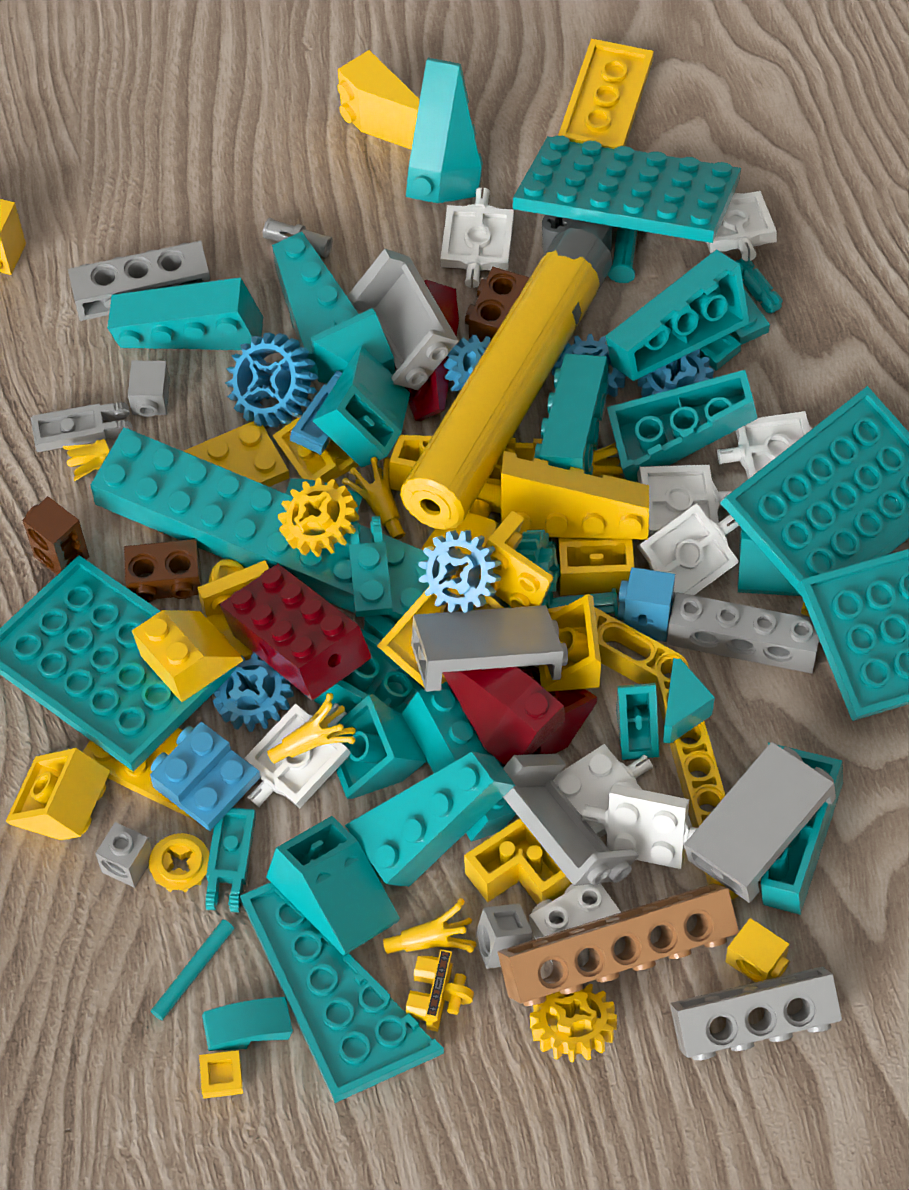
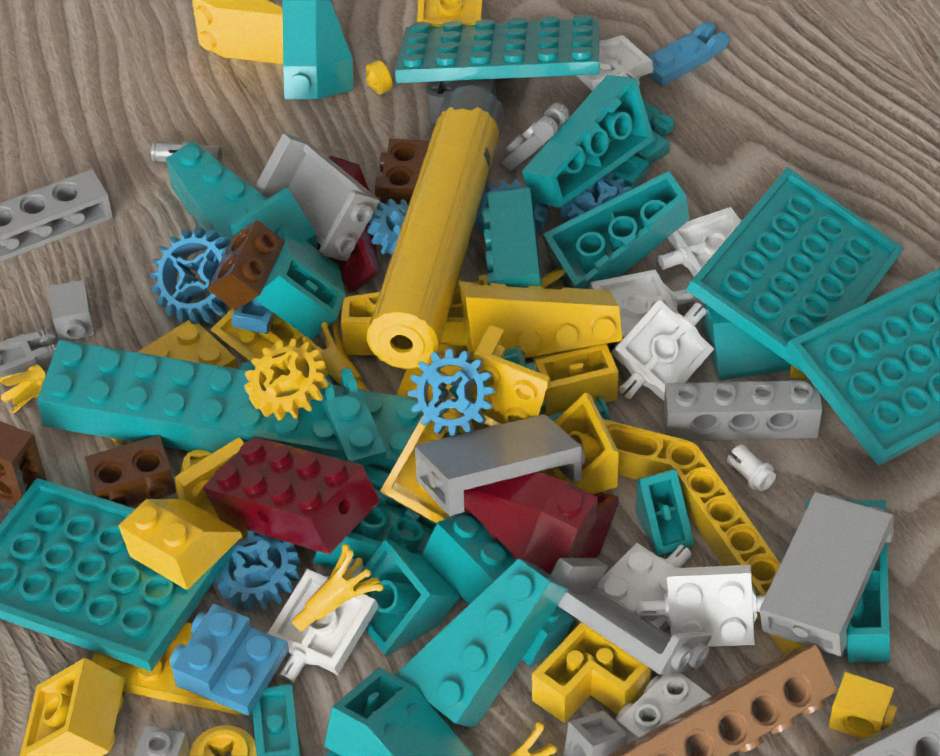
camera: 15 degrees left, 10 degrees down
(186, 317) = (93, 239): teal wedge -> none
(313, 386) = (246, 265): none -> reddish brown brick
(477, 237) = (364, 121): white plate -> none
(503, 190) = (379, 77): none -> yellow tile
(622, 268) = (508, 96): teal axle -> none
(632, 296) = (535, 136): none -> light grey hinge
(647, 602) = (640, 396): dark azure brick -> none
(687, 702) = (712, 478): teal slope -> none
(740, 699) = (758, 474): none -> white pin
(819, 224) = (687, 53): none -> dark azure hinge

